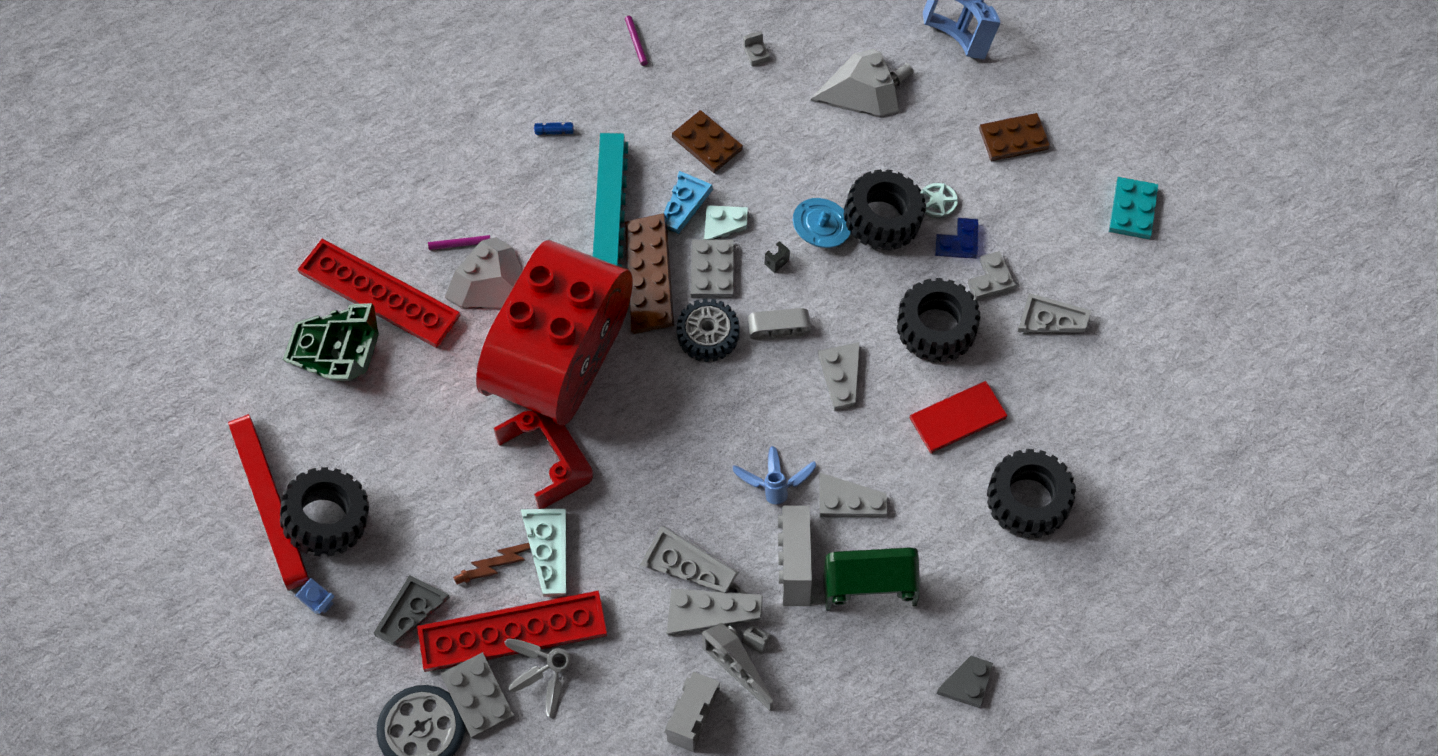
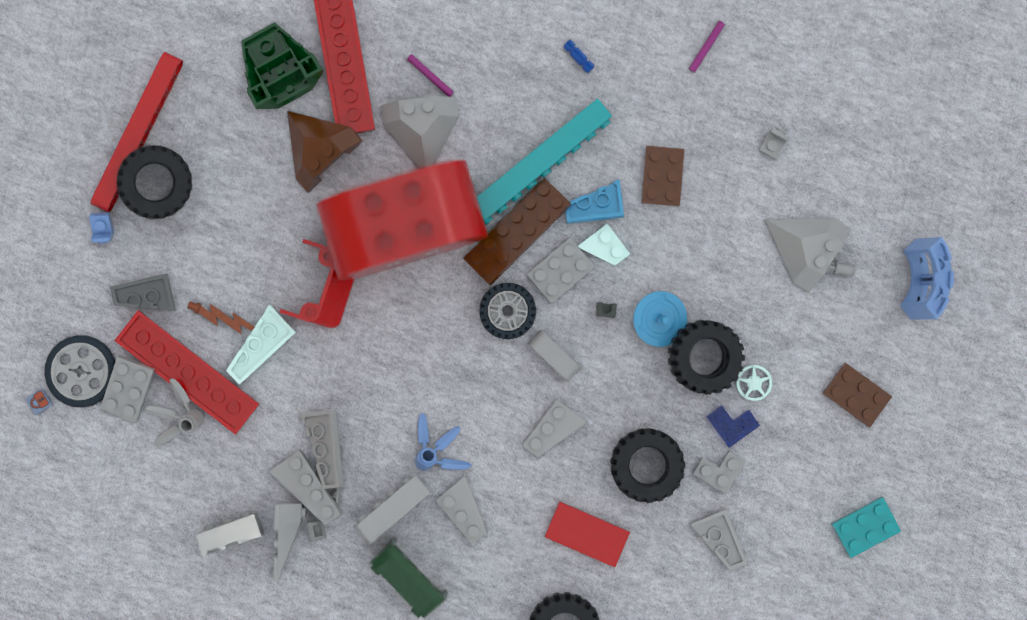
camera: 50 degrees right, 25 degrees up
(428, 367) = (317, 146): none -> reddish brown wedge

